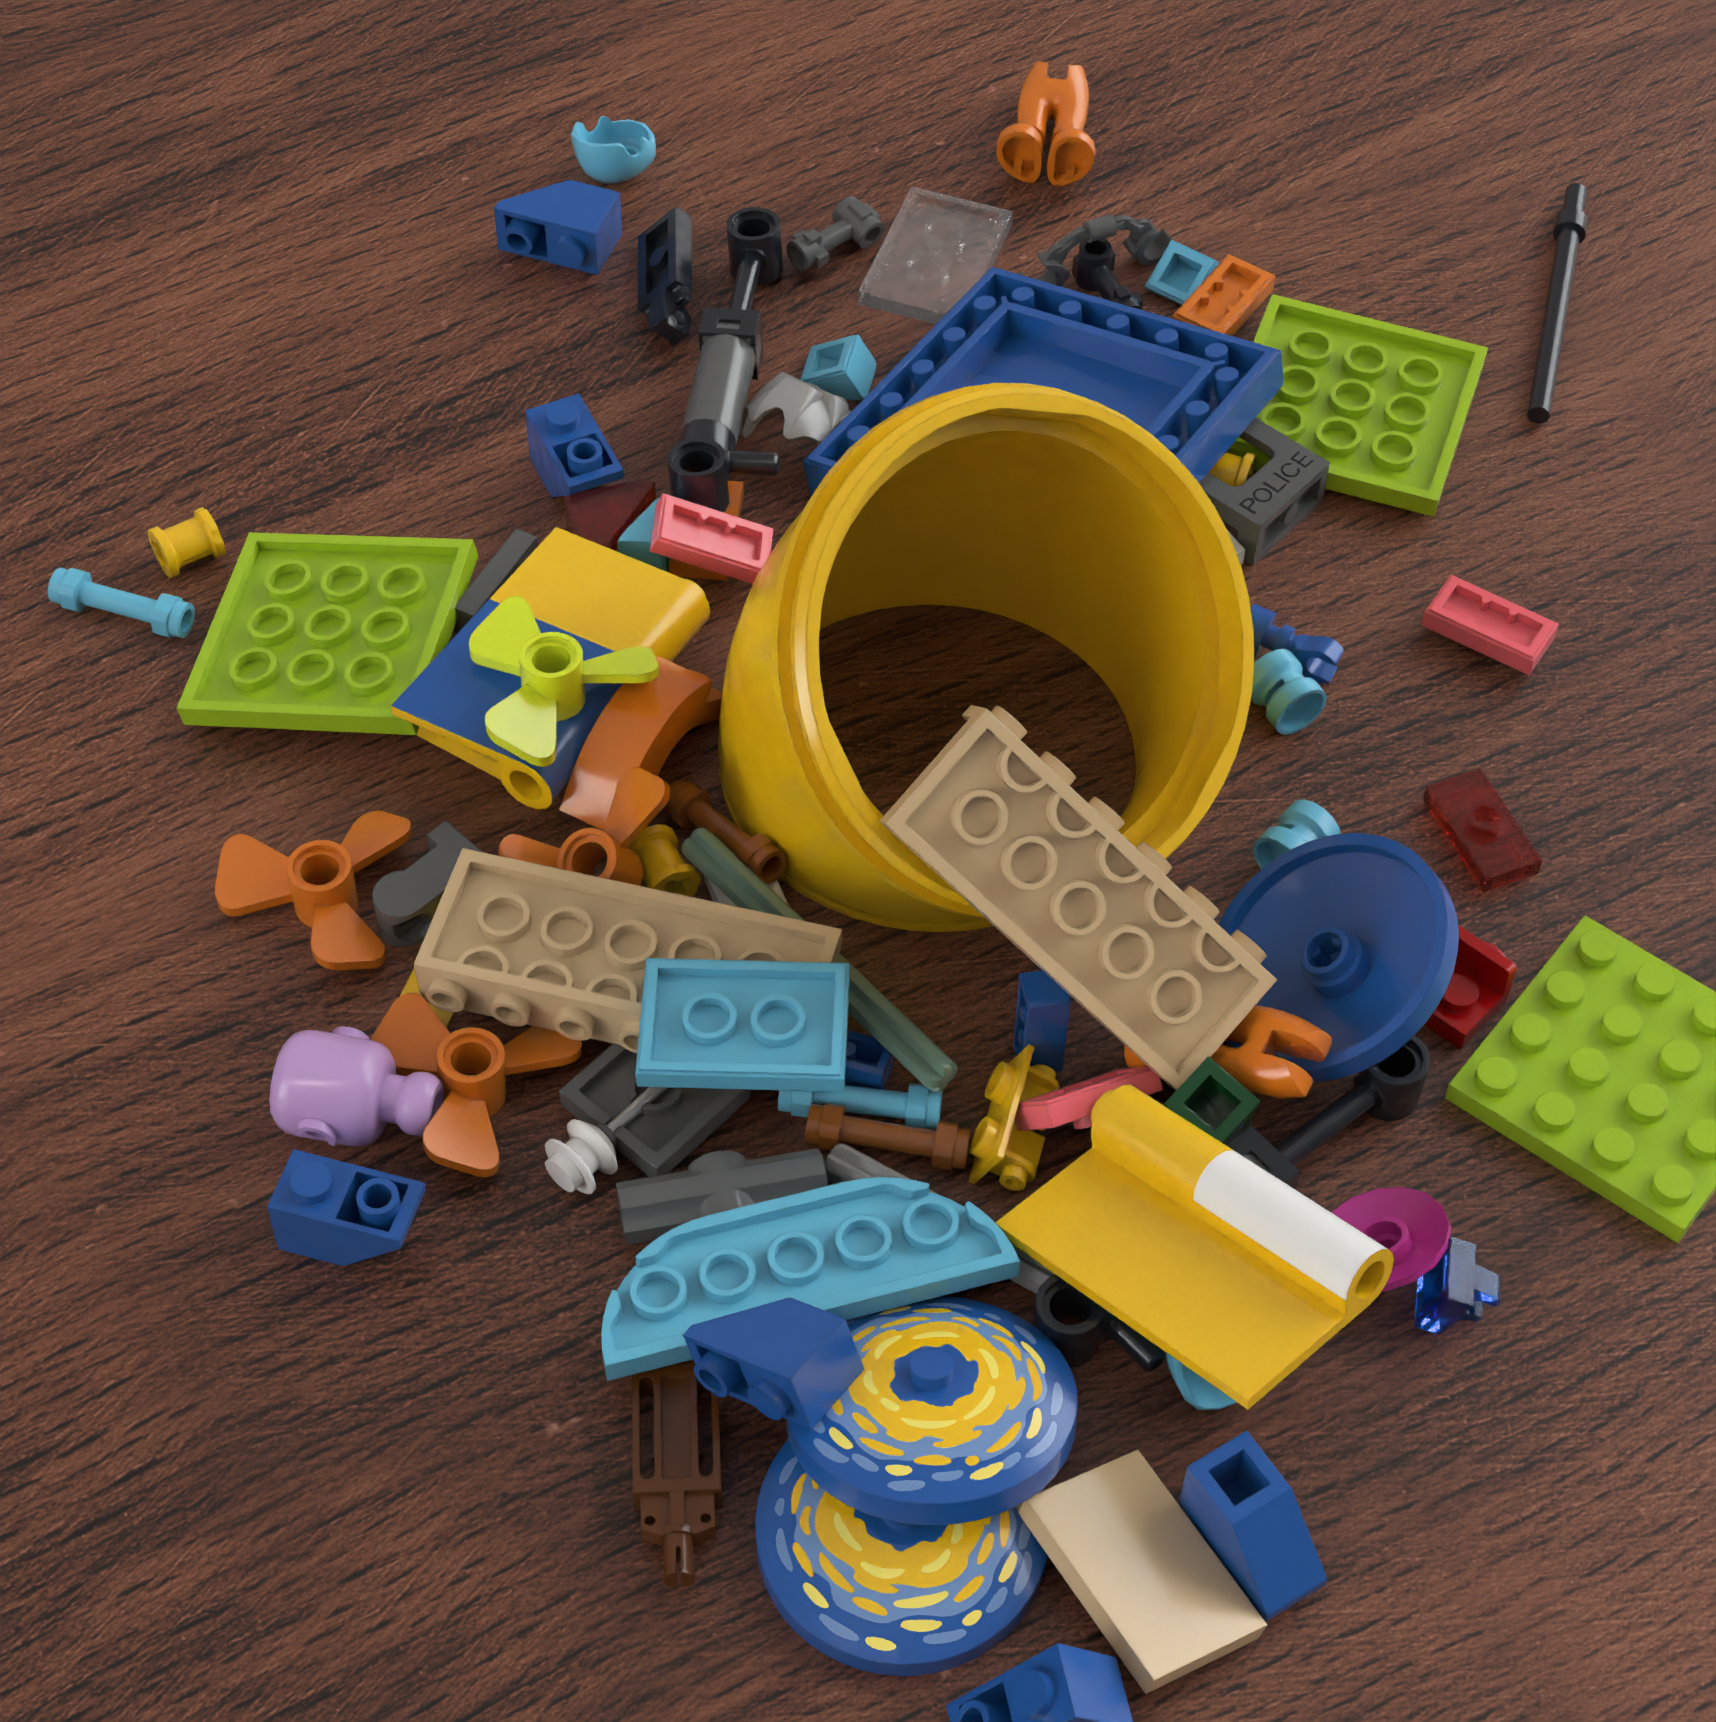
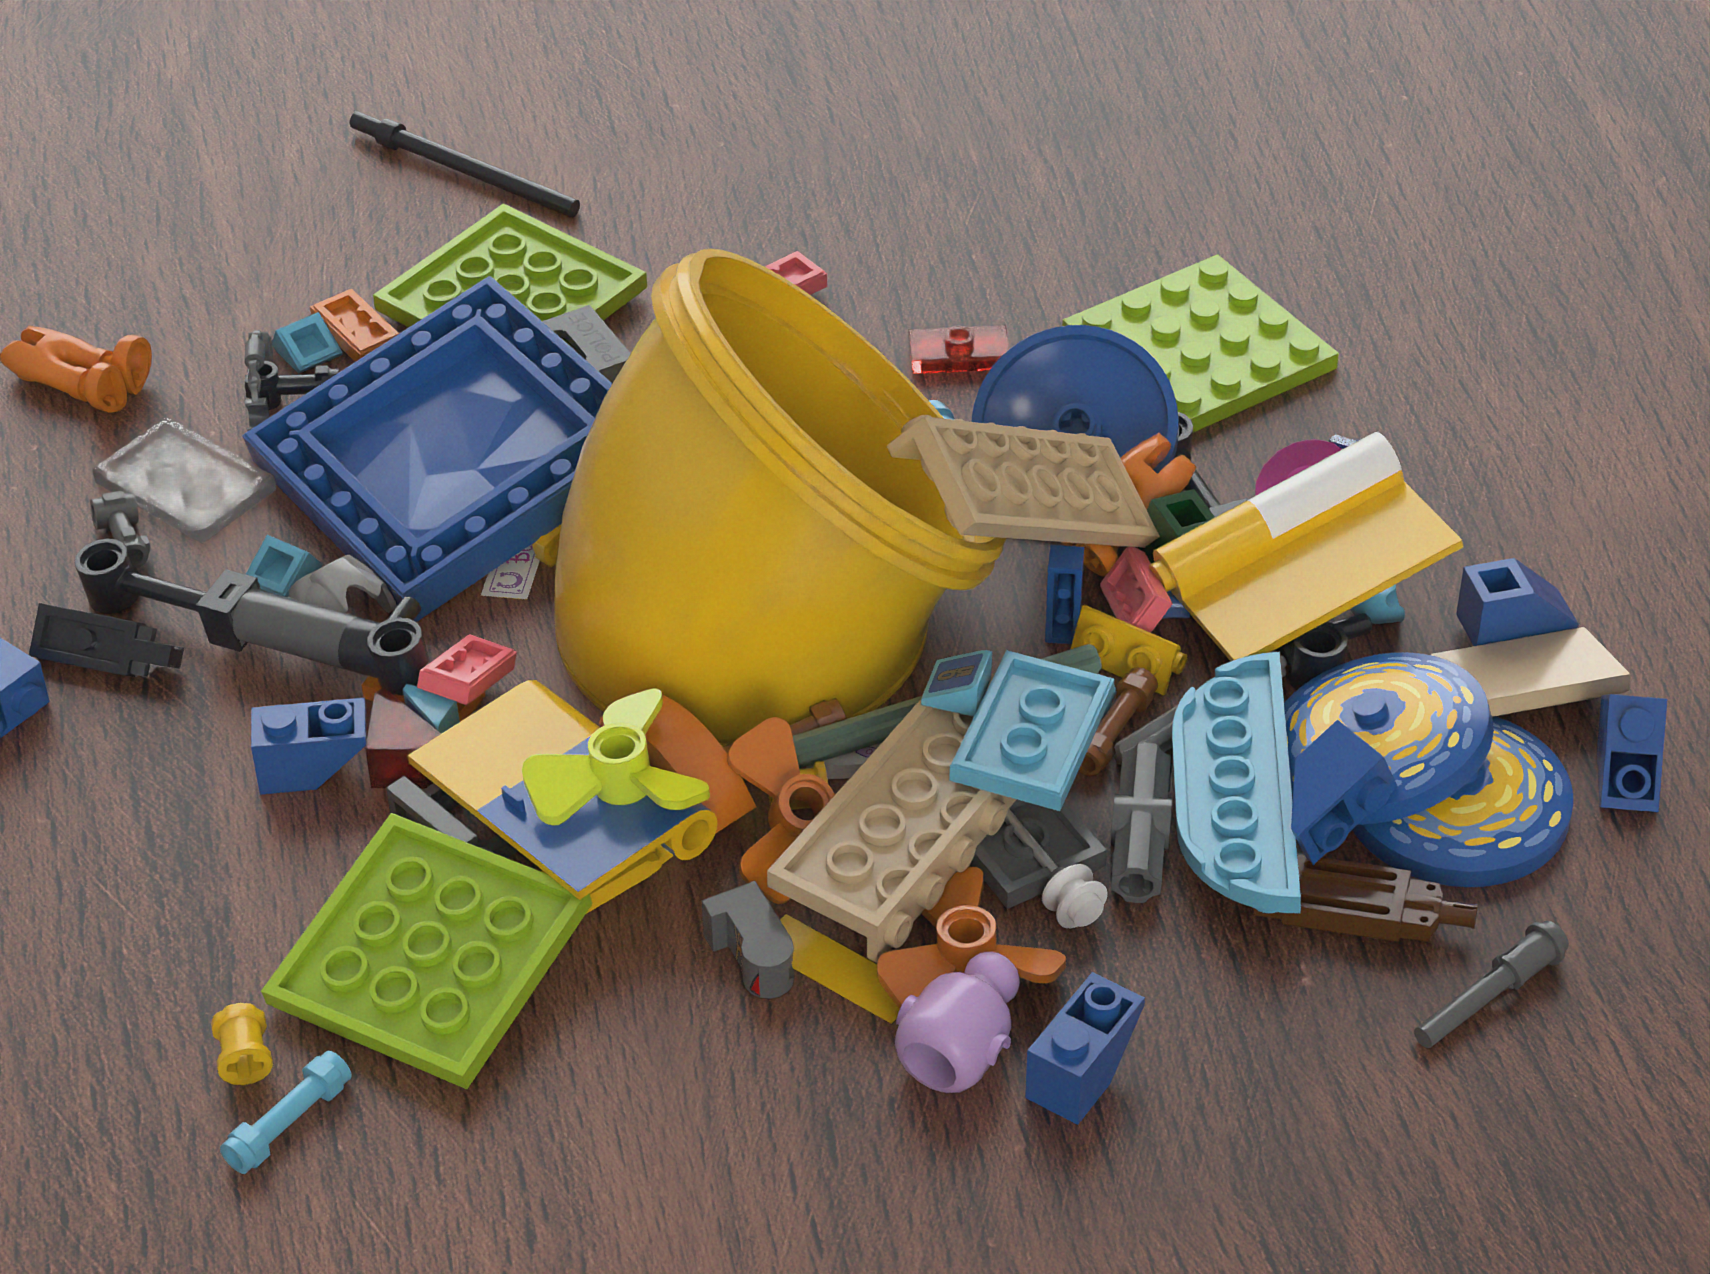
camera: 70 degrees left, 10 degrees down
(319, 884) = (716, 1012): orange piece -> none
(614, 1639) = (1542, 945): none -> dark grey pin
(784, 934) = (959, 682): none -> medium azure slope

